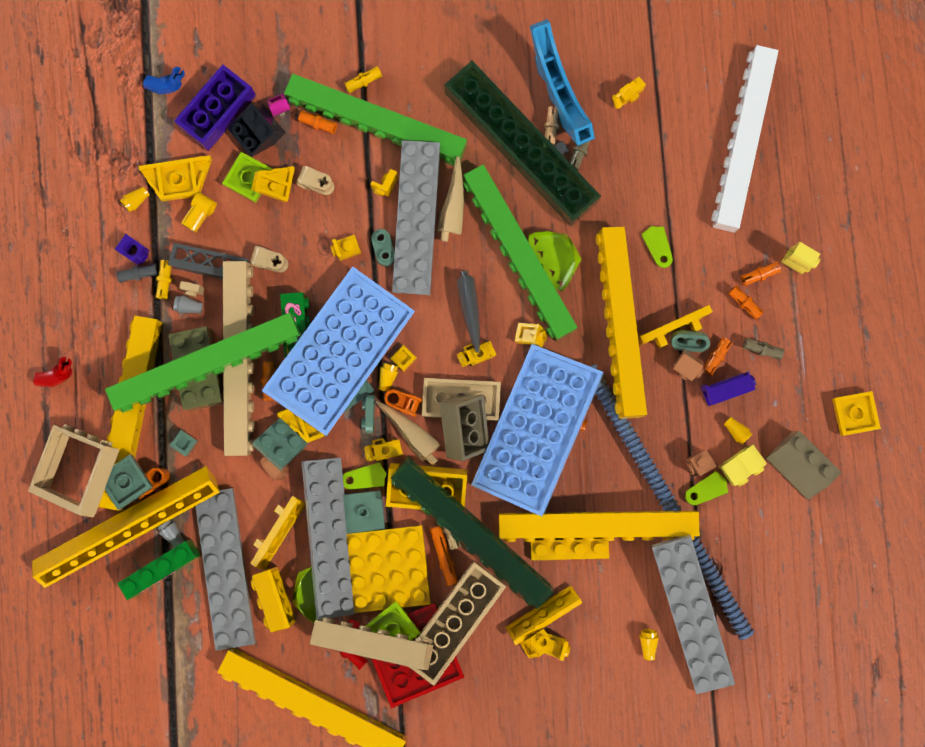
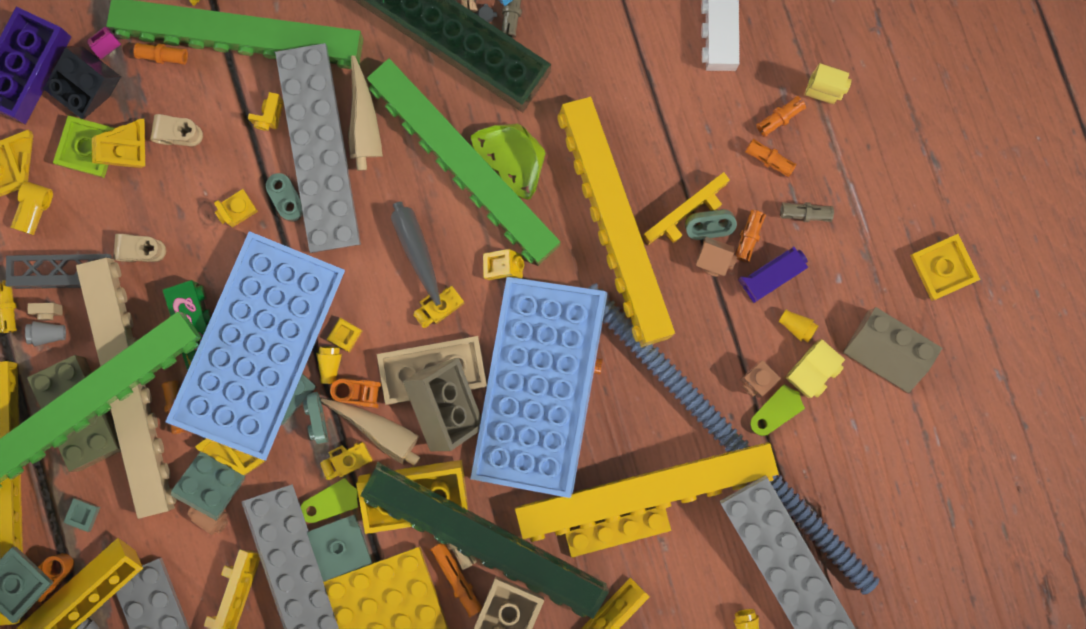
camera: 15 degrees left, 0 degrees up
(658, 245) = (641, 110): lime piece -> none

